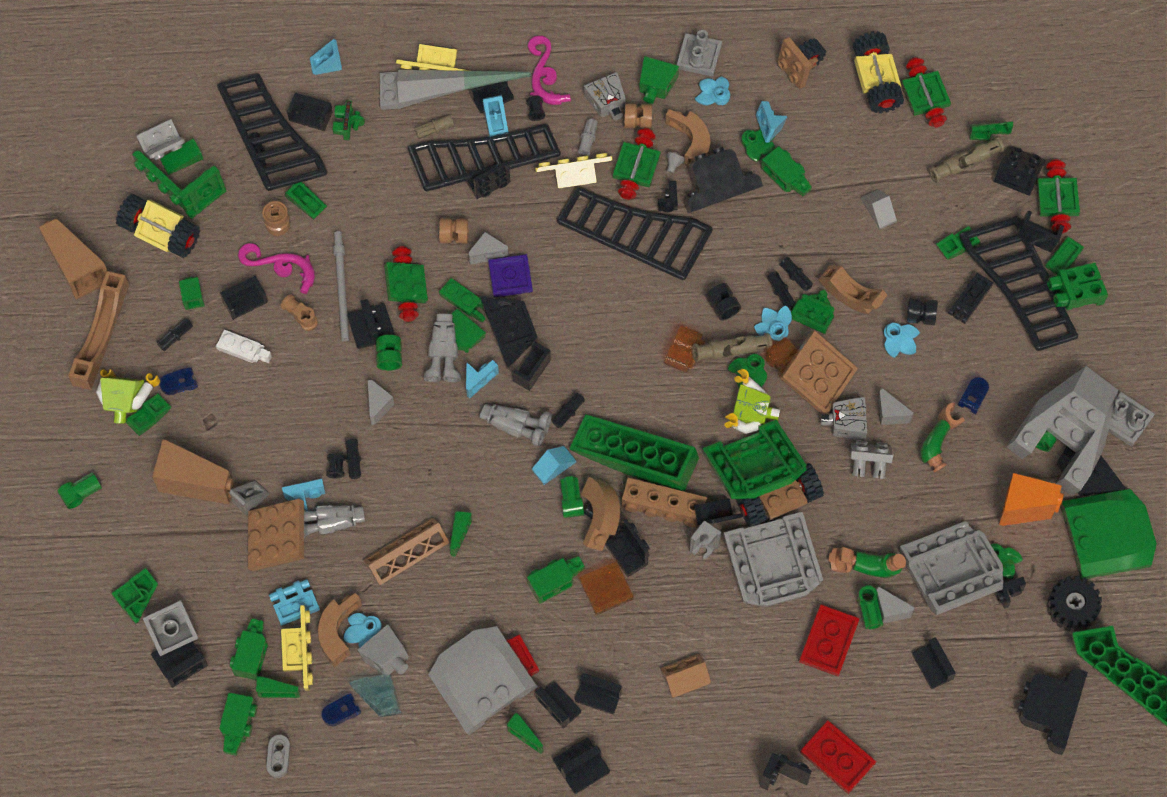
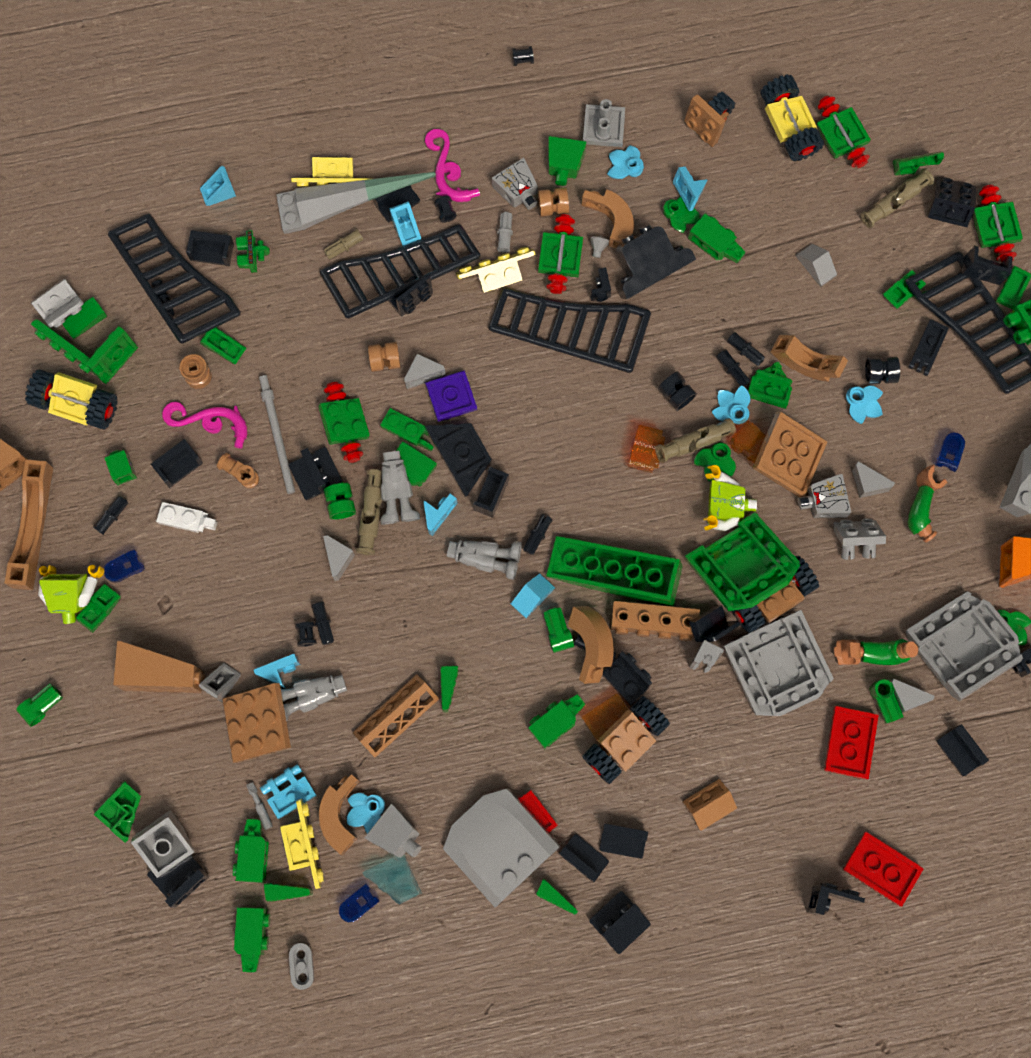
camera: 10 degrees left, 10 degrees up
(265, 613) = (259, 807): none -> light grey piece
(419, 358) = (371, 509): none -> dark tan piece
(616, 602) = (626, 740): none -> plate

